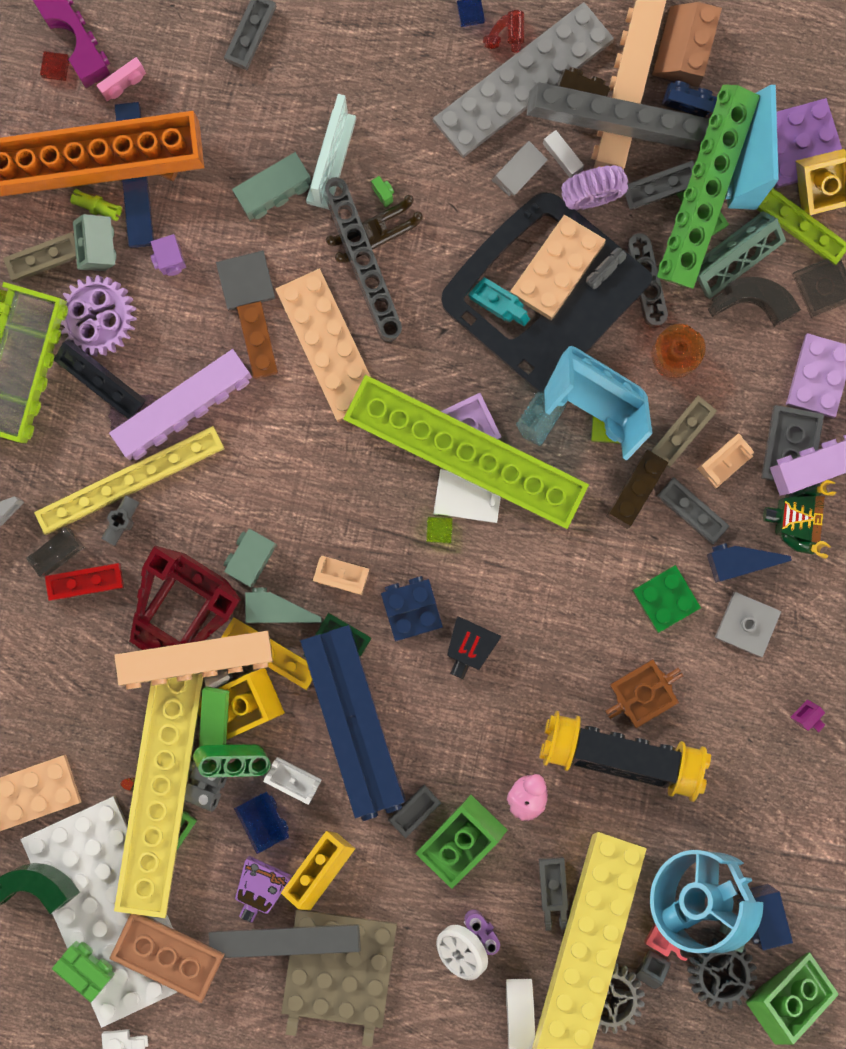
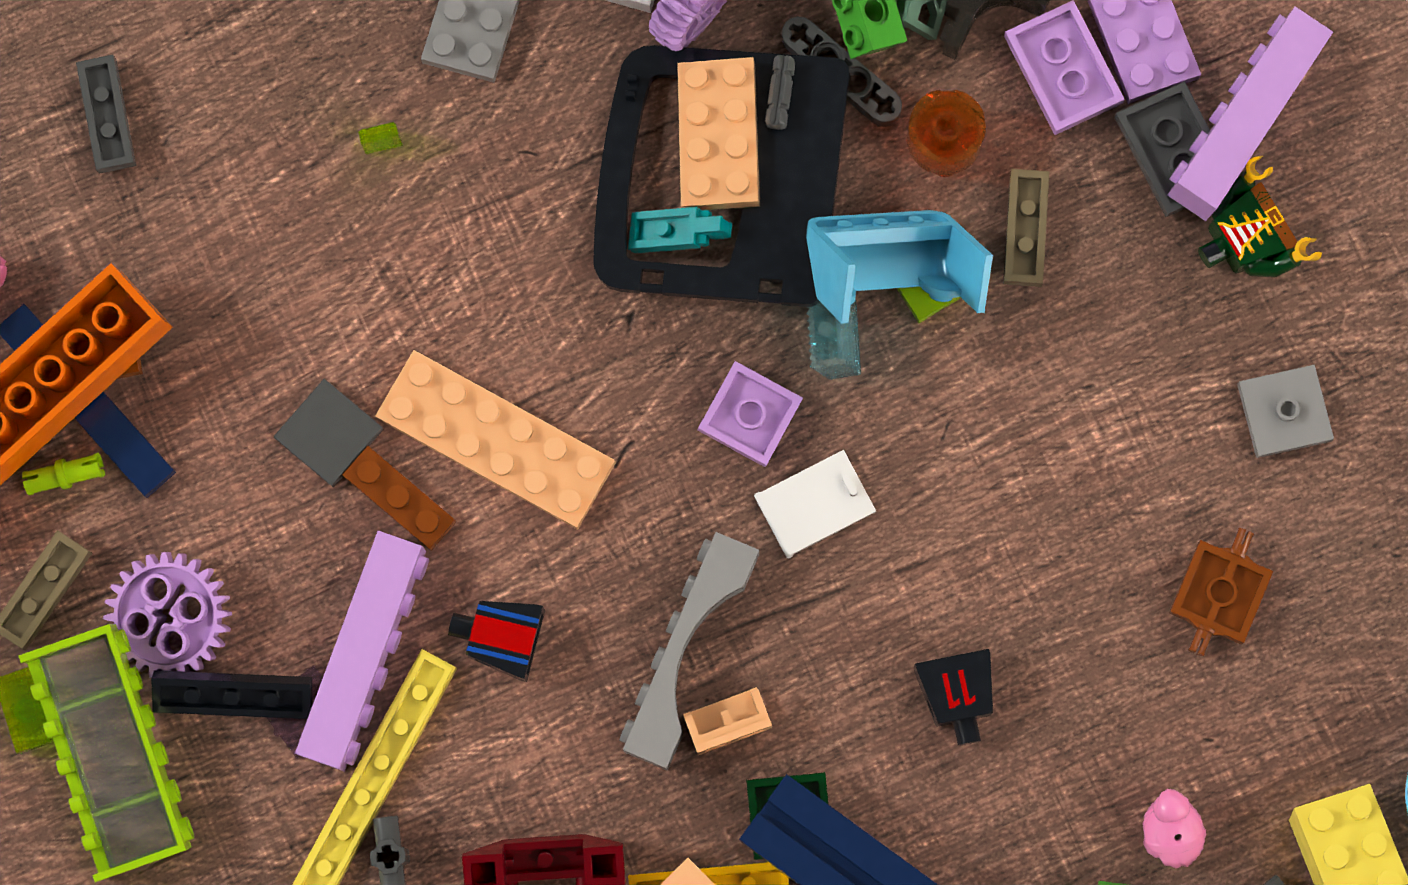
camera: 30 degrees left, 5 degrees down
(94, 242) = (97, 523): brick -> none
(167, 255) = (205, 472): medium lavender brick -> none
(249, 557) = (593, 783): sand green brick -> none
(257, 448) = (501, 635): none -> torso
(270, 608) = (671, 827): sand green slope -> none
(272, 187) = (278, 289): sand green brick -> none
(303, 552) = (722, 575): none -> light grey arch
(332, 152) = (326, 198): light aqua fence -> none
(358, 248) = (453, 283): dark grey beam -> none
(376, 228) = (451, 252): dark brown piece -> none
(381, 144) = (380, 138): none -> clear neon green tile
(383, 191) = (424, 195): bright green plate -> none
(411, 608) = (848, 698): dark blue plate -> none
(439, 530) = (810, 573): clear neon green plate -> none
(466, 451) = (772, 448): lime plate -> none
(519, 169) = (578, 46): light grey hinge -> none
(635, 760) = (1242, 695): brick -> none
(637, 489) = (1022, 341): dark brown brick -> none
(666, 599) = (1160, 453): green plate -> none
(693, 511) = (1111, 318): dark grey tile -> none
(726, 461) = (1106, 226): light nougat hinge -> none
(738, 561) = (1216, 338): dark blue slope -> none
(765, 361) = (1064, 67): none -> lavender plate

